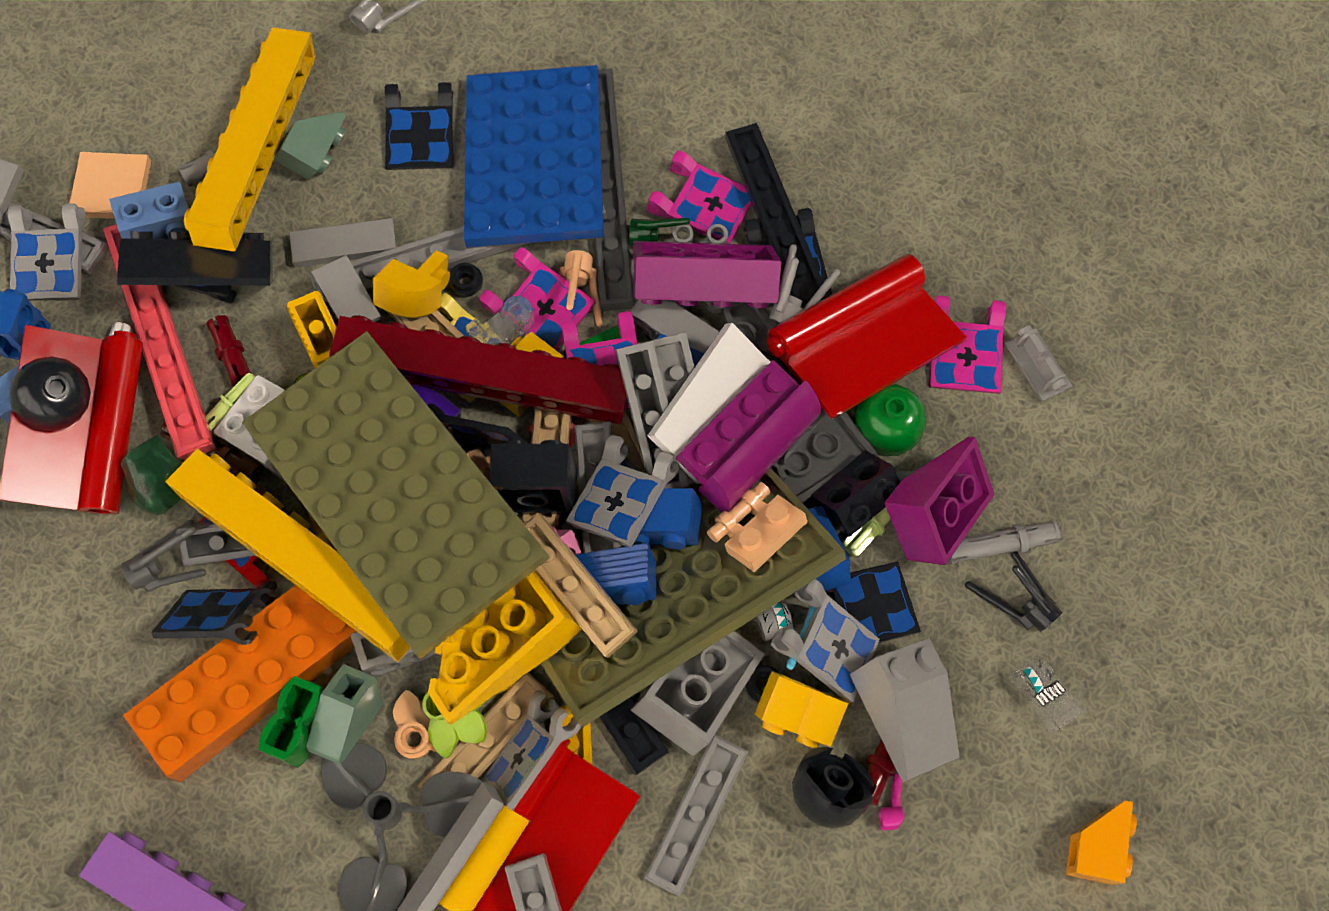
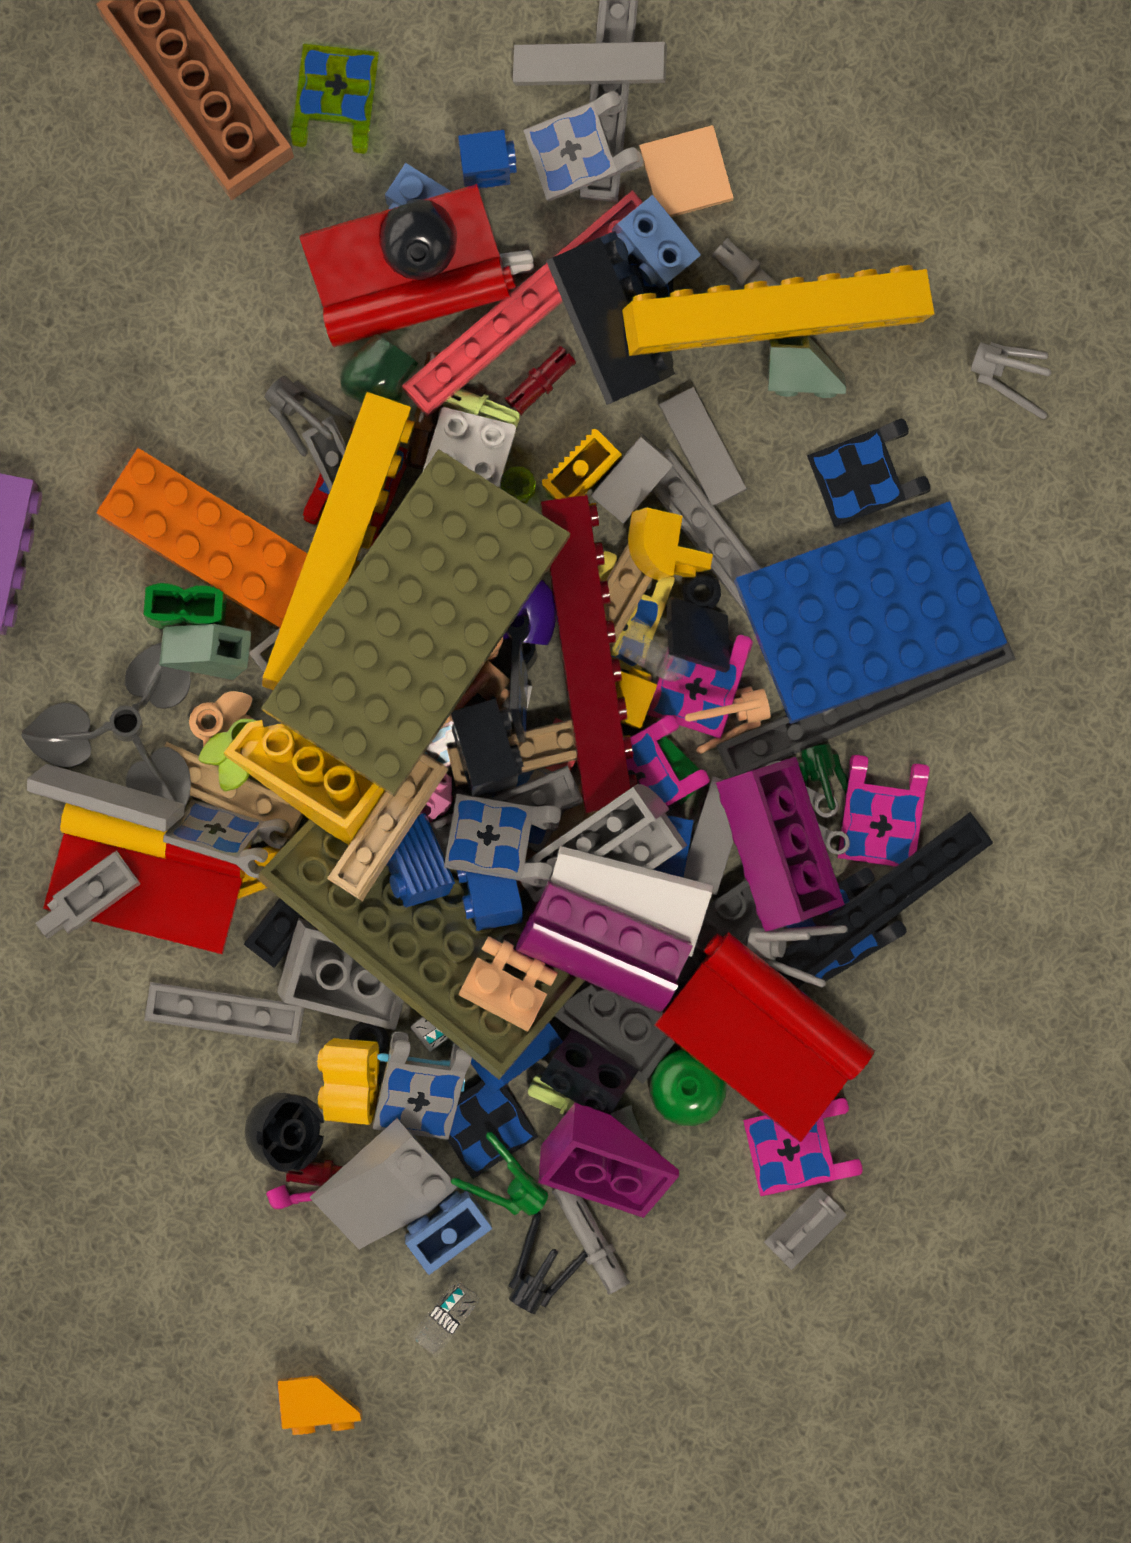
camera: 75 degrees right, 15 degrees up
(215, 613) = (261, 487): black flag -> none
(500, 285) = (698, 634): none -> black piece
(946, 585) = (523, 1190): none -> green plant
(970, 662) = (447, 1231): none -> medium blue brick

